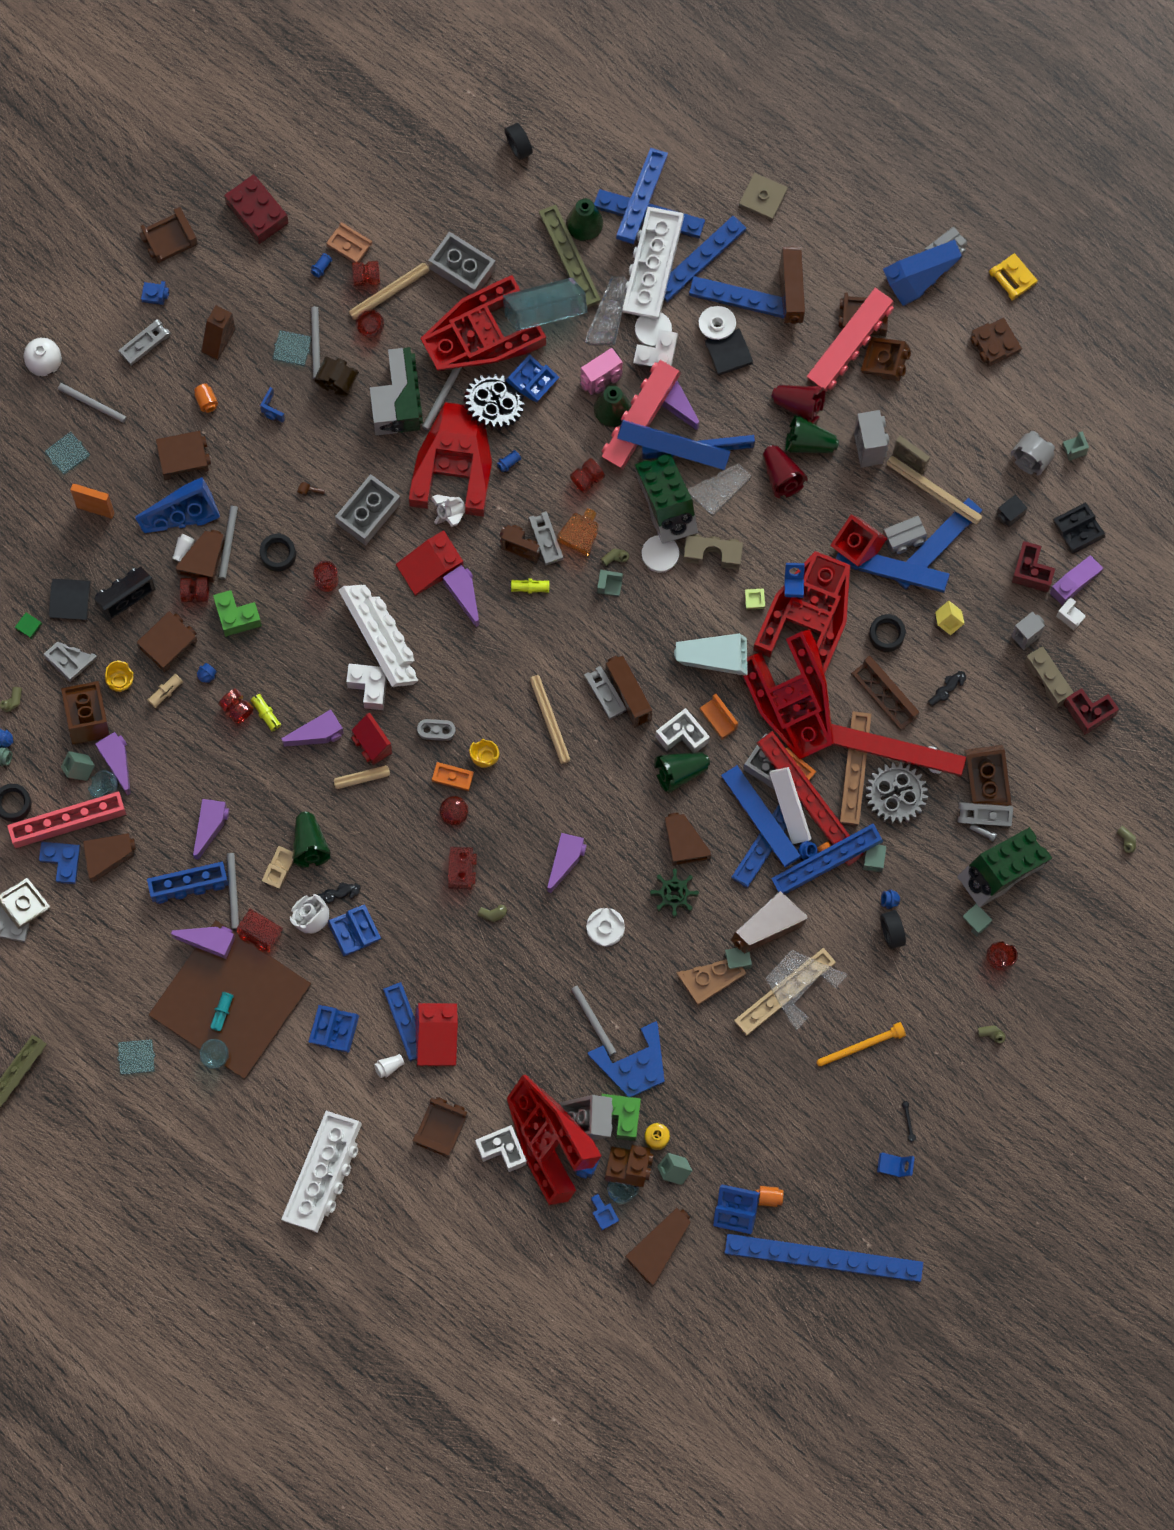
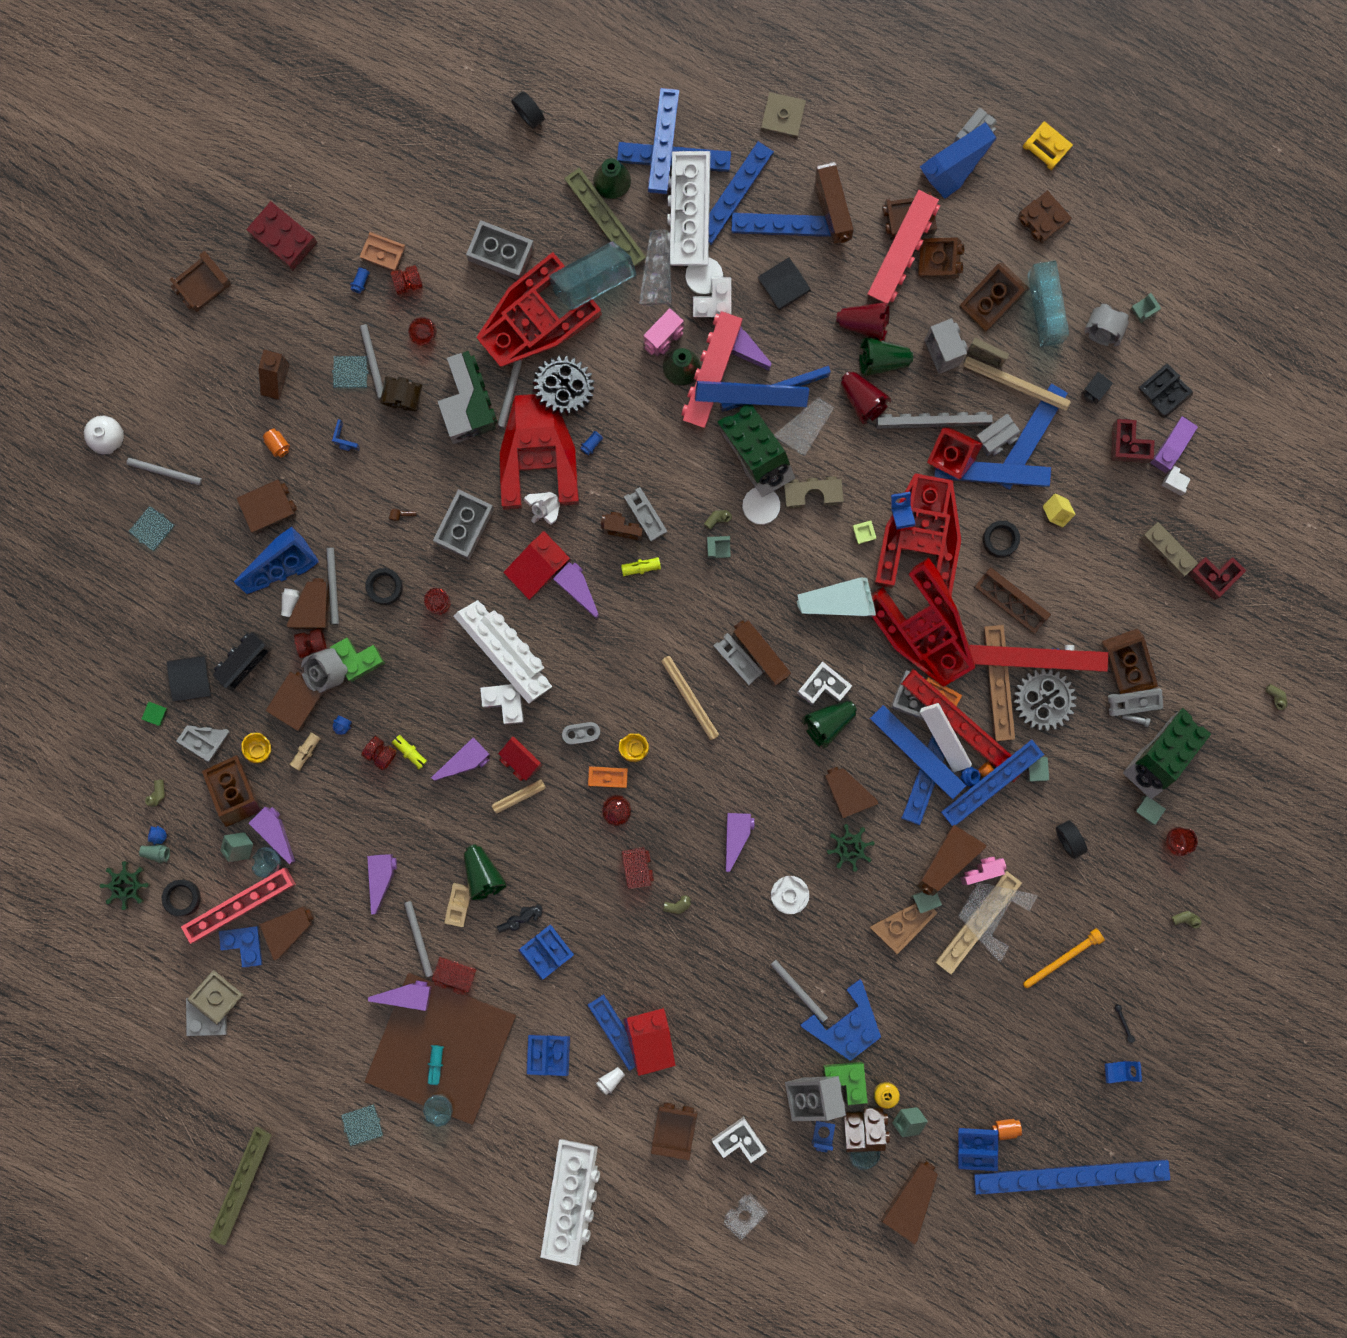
camera: 15 degrees left, 10 degrees up
(92, 500) = (187, 576): orange tile -> none
(144, 342) = (201, 398): light grey plate -> none
(155, 293) = (200, 344): blue bracket -> none
(186, 882) = (371, 942): blue brick -> none
(201, 615) = (323, 670): none -> light grey brick
(310, 914) = (499, 949): white cylinder -> none
(389, 290) = (433, 292): tan axle -> none
(486, 1234) = (743, 1227): none -> clear brick
(532, 378) = (596, 353): blue slope -> none
(540, 1128) = (776, 1118): red wedge -> none
(580, 532) = (678, 501): clear orange torso -> none
(585, 477) = (672, 442): clear red wheel -> none
(604, 1215) = (851, 1181): blue plate -> none
(717, 316) = (766, 248): white dish -> none
(719, 717) = (855, 660): orange panel -> none
(805, 941) = (986, 869): none -> bright pink plate
(838, 507) = (941, 420): none -> light grey plate
(890, 899) = (1060, 807): blue plate -> none
(930, 404) = (994, 296): none -> reddish brown slope
(951, 683) = (1067, 586): black animal -> none
(980, 421) = (1048, 303): none -> clear light blue brick
(1028, 630) = (1140, 508): light grey brick -> none

